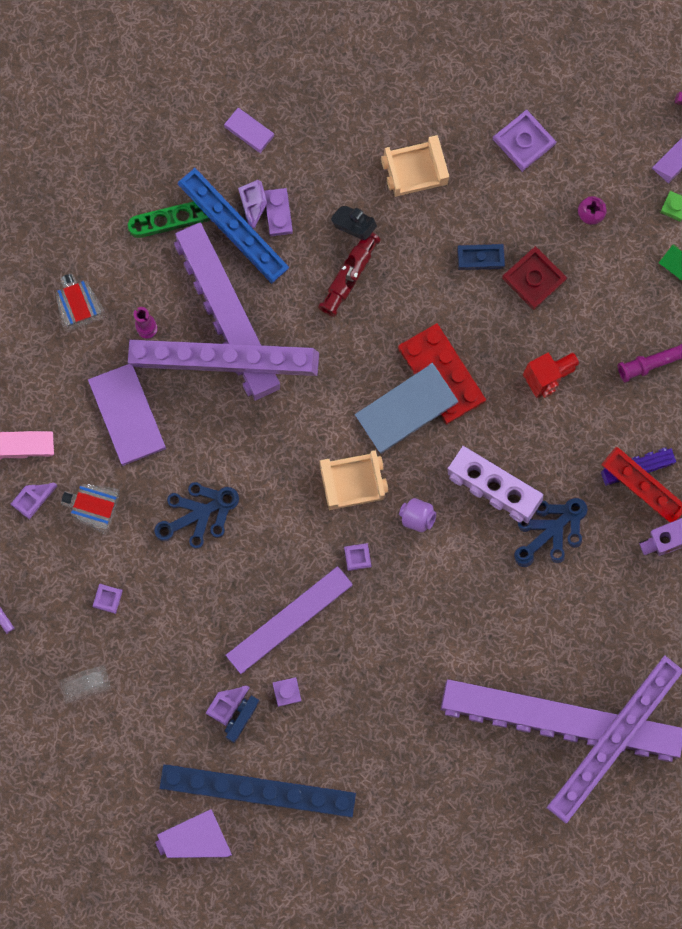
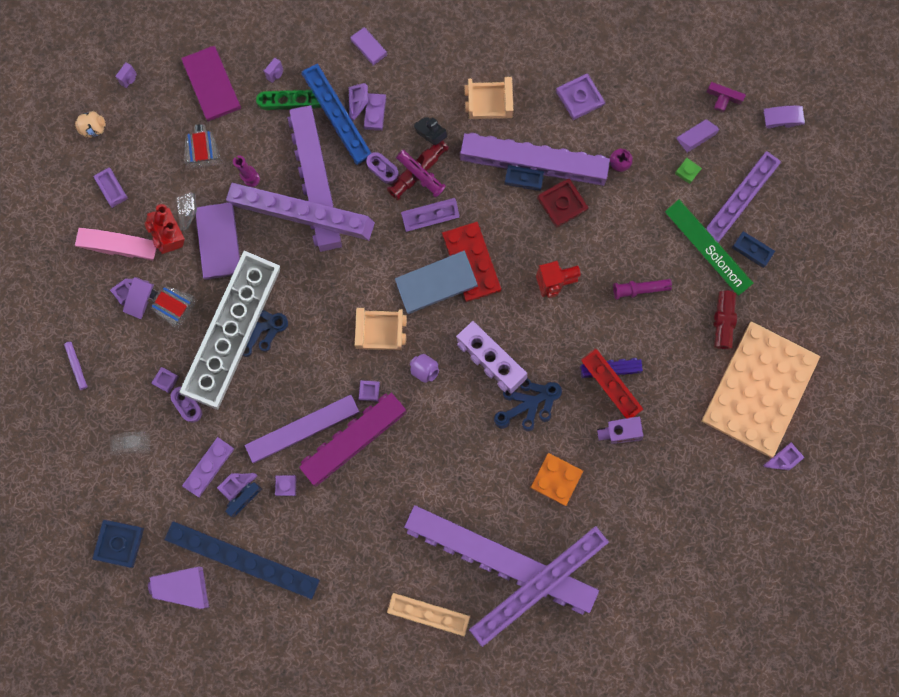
camera: 20 degrees right, 0 degrees up
(50, 506) = (138, 297): none -> medium lavender slope
(60, 415) = (164, 229): none -> red brick
(65, 218) = (211, 83): none -> magenta tile
(78, 384) = (186, 210): none -> clear tile
(105, 805) = (118, 543): none -> dark blue plate
(141, 186) = (273, 70): none -> medium lavender plate
(142, 622) = (185, 406): none -> medium lavender plate
(176, 521) = (230, 330): none -> white brick
(188, 691) = (208, 467): none -> medium lavender plate
(307, 280) = (383, 168): none -> medium lavender plate
(354, 619) = (353, 439): none -> magenta brick
(364, 284) = (427, 179): none -> magenta pin
(378, 326) = (430, 214): none -> medium lavender plate
(493, 803) = (428, 614): none -> light nougat tile
(513, 230) = (526, 155): none -> medium lavender brick
(605, 612) = (556, 479): none -> orange plate

